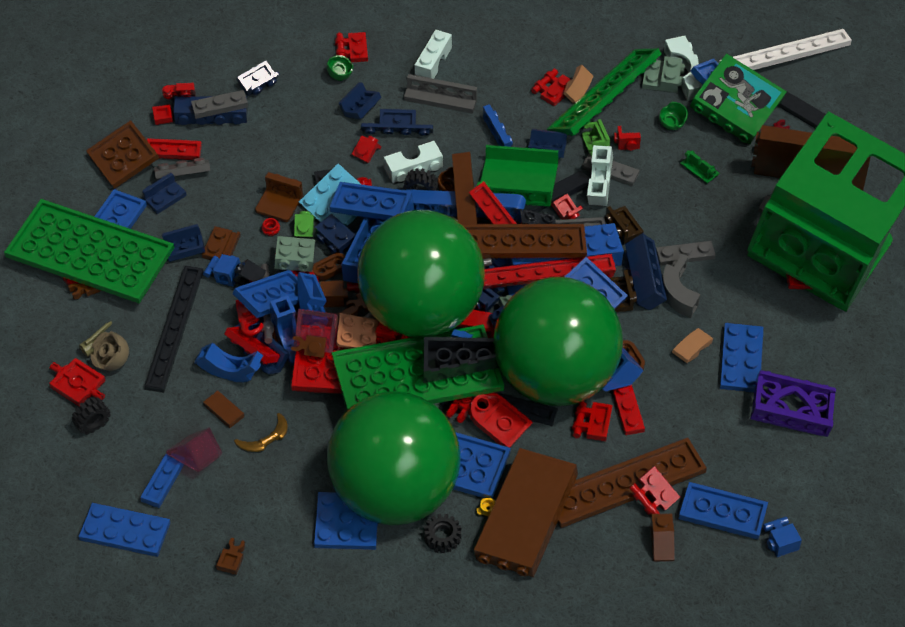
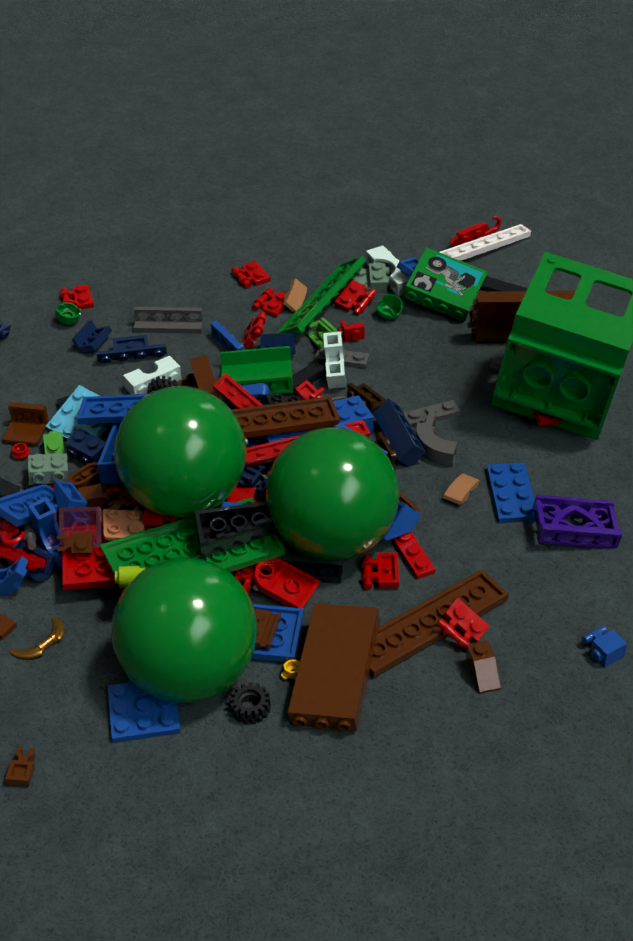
camera: 10 degrees left, 10 degrees down
(353, 392) = (126, 574): none -> lime brick
(366, 148) = (104, 373): red bracket -> none
(436, 49) = (156, 287): light aqua arch -> none
(470, 461) = (266, 627): none -> reddish brown plate
(525, 123) = (254, 329): none -> red plate
(543, 47) = (251, 274): none -> red plate
(637, 93) = (350, 296): none -> red plate
(699, 167) = (429, 345): green hinge -> none
(723, 510) = (537, 631): blue plate -> none
(789, 32) = (475, 232): none -> red plate

